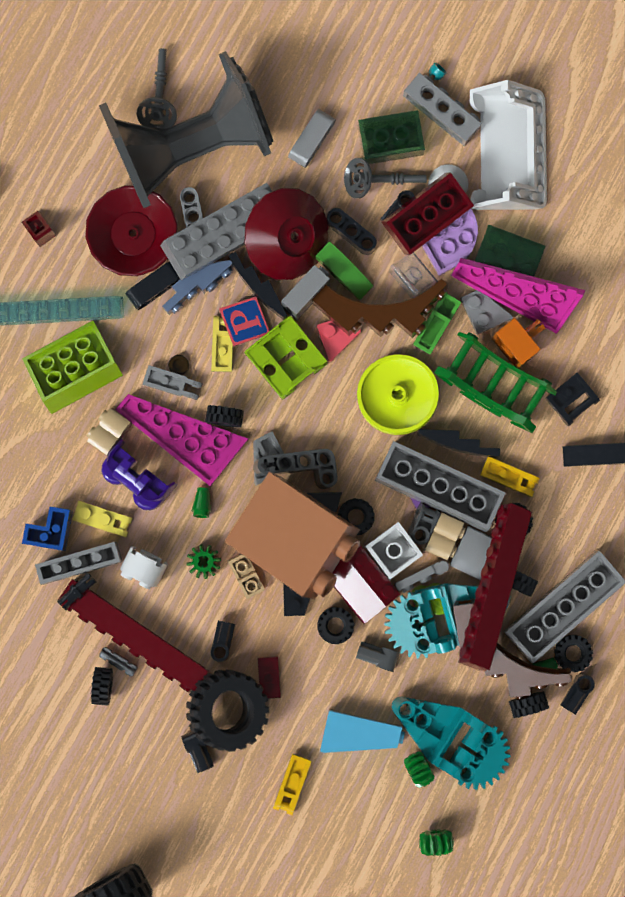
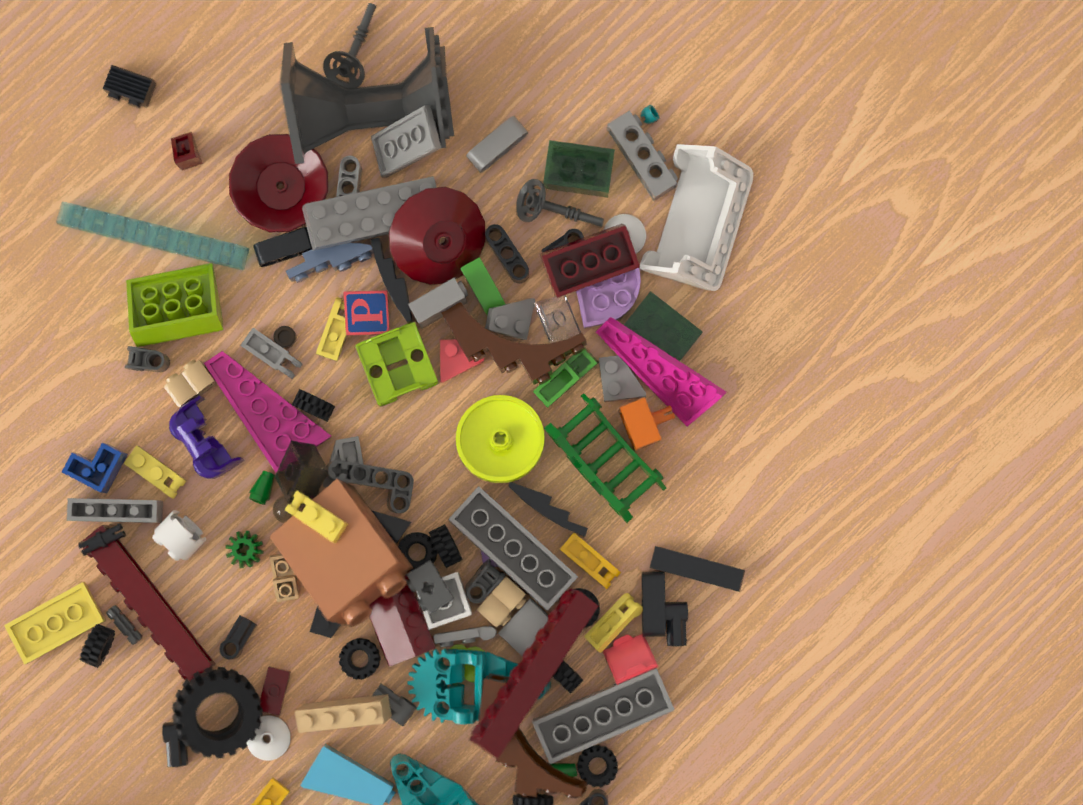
camera: 20 degrees right, 0 degrees up
(56, 679) = (54, 623): none -> light yellow plate
(59, 423) = (142, 360): none -> dark grey piece
(233, 159) = (406, 141): none -> light grey tile
(233, 482) = (300, 471): none -> clear smoke brick
(262, 510) = (316, 517): none -> light yellow plate
(288, 722) = (280, 739): none -> white dish
(337, 677) = (343, 713): none -> tan brick
(374, 287) = (511, 319): none -> light grey wing
(376, 530) = (429, 574): none -> dark grey brick
(380, 503) = (445, 546): none -> black tyre
(547, 524) = (613, 622): none -> light yellow plate
(567, 394) = (678, 493): black plate -> none
(572, 550) = (629, 657): none -> coral piece
(577, 497) = (653, 604): none -> black beam
(600, 502) = (676, 621): none -> black piece

